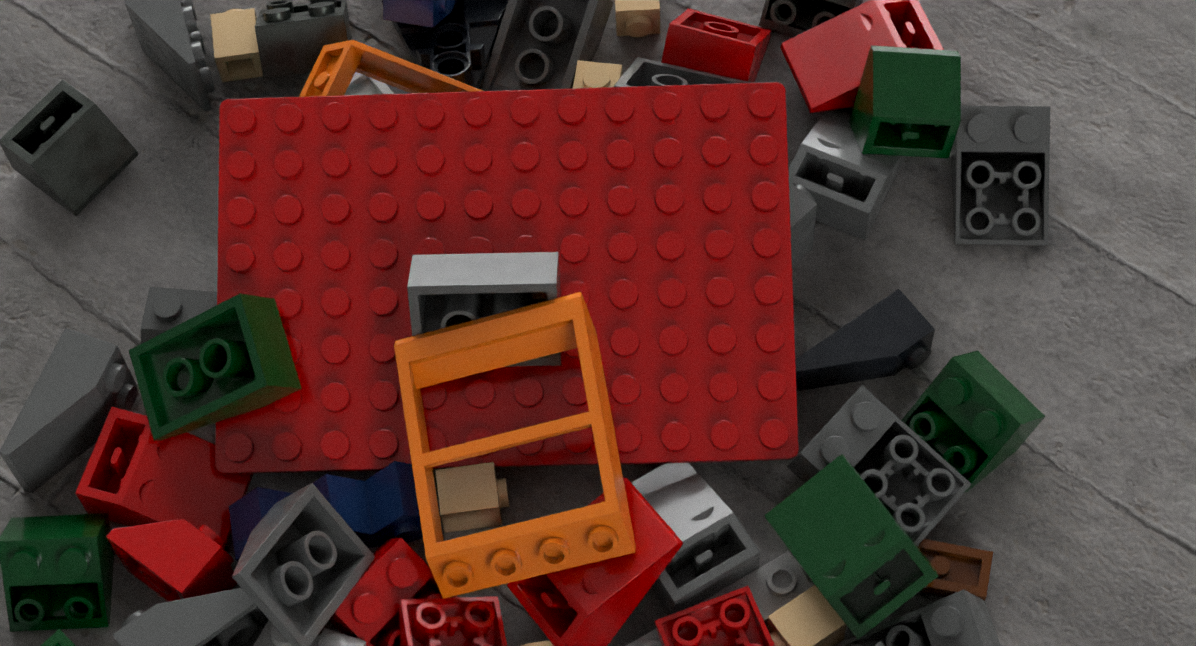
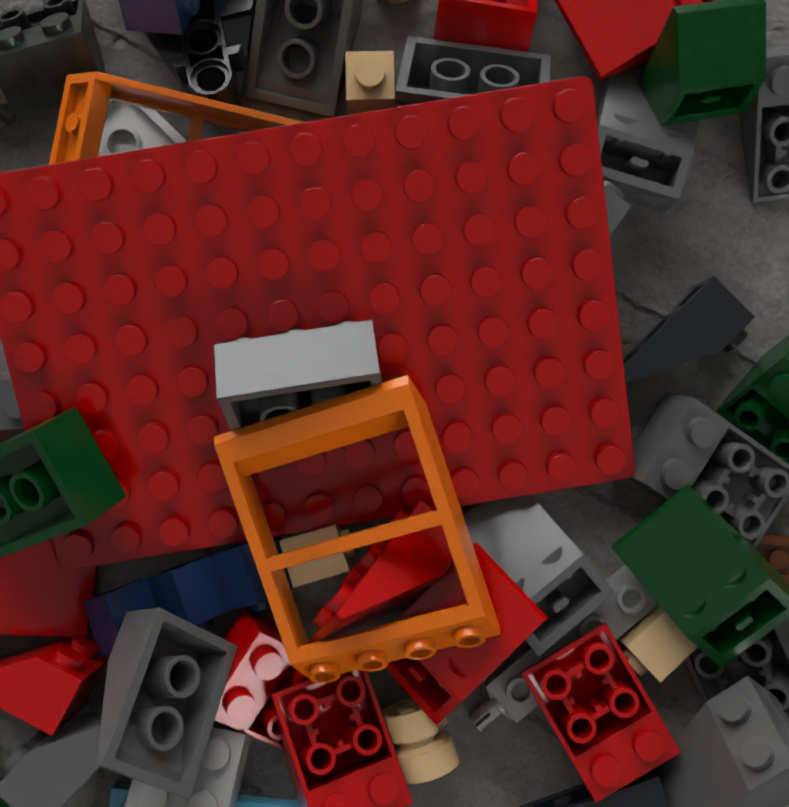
camera: 15 degrees left, 25 degrees up
(545, 485) = (385, 578): none -> red slope

